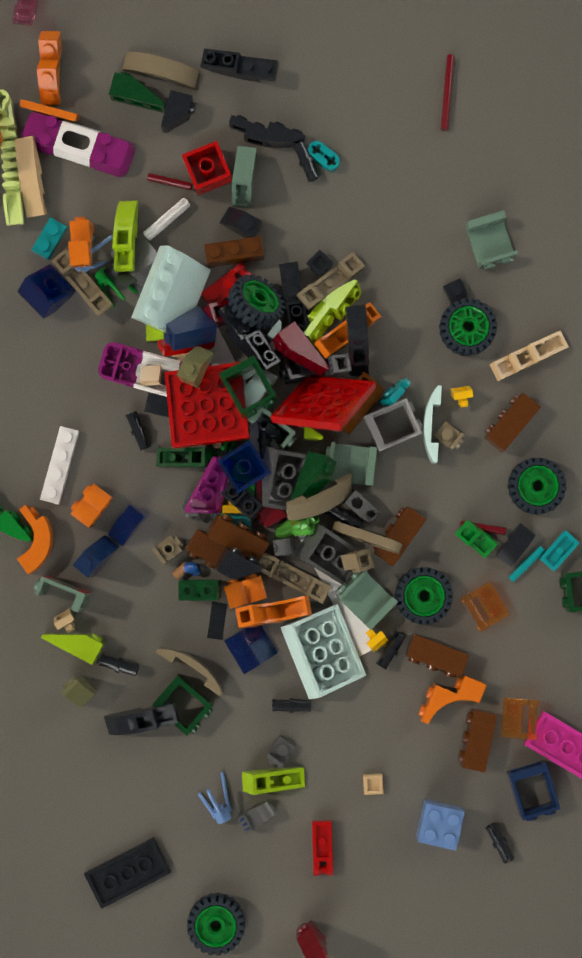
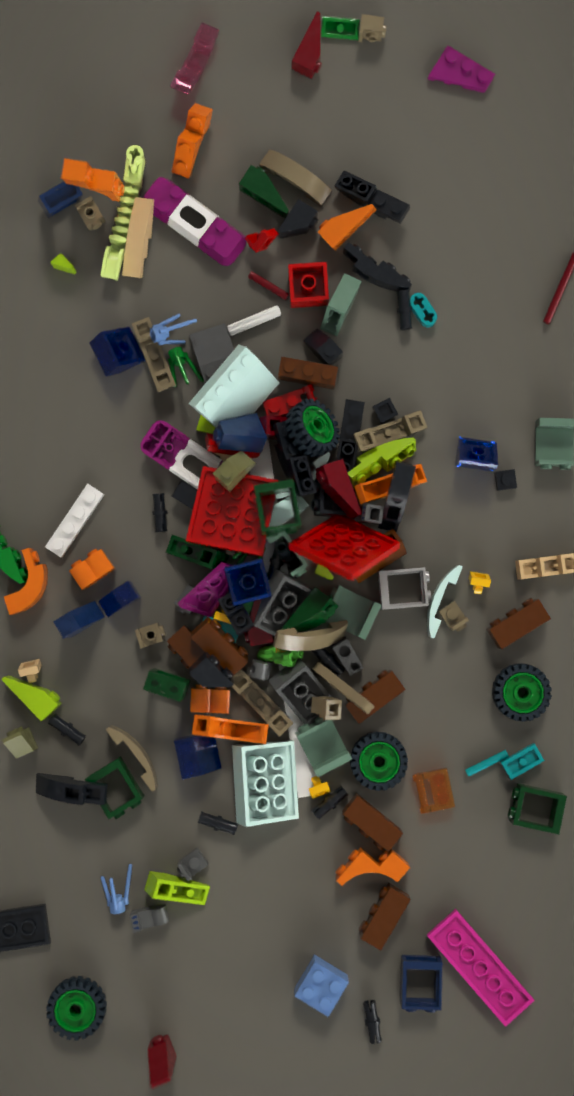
camera: 15 degrees right, 0 degrees up
(49, 110) = (177, 180): orange tile -> none
(49, 238) = (137, 302): teal plate -> none
(81, 242) = (164, 318): orange arch -> none
(82, 596) = (53, 649): sand green panel -> none
(122, 278) = (191, 359): black sticker -> none
(124, 235) = (208, 323): lime slope -> none
(148, 141) = (262, 240): none -> red bracket
(151, 375) = (189, 464): tan tile -> none
(186, 567) = (162, 658): arm -> none
(217, 620) = (174, 718): black sticker -> none
(220, 103) = (341, 227): none -> orange slope
(322, 847) = (202, 968): red plate -> none
(373, 784) = (270, 924): tan tile -> none
(392, 394) = (414, 558): teal plate -> none
(420, 276) = (477, 454): none -> clear blue slope
(470, 312) = (521, 518): wheel -> none
(476, 538) = (447, 722): green slope -> none
(489, 528) = (456, 714): dark red piece -> none
(513, 718) = (425, 906): clear orange plate -> none
(516, 545) = (483, 742): black slope -> none

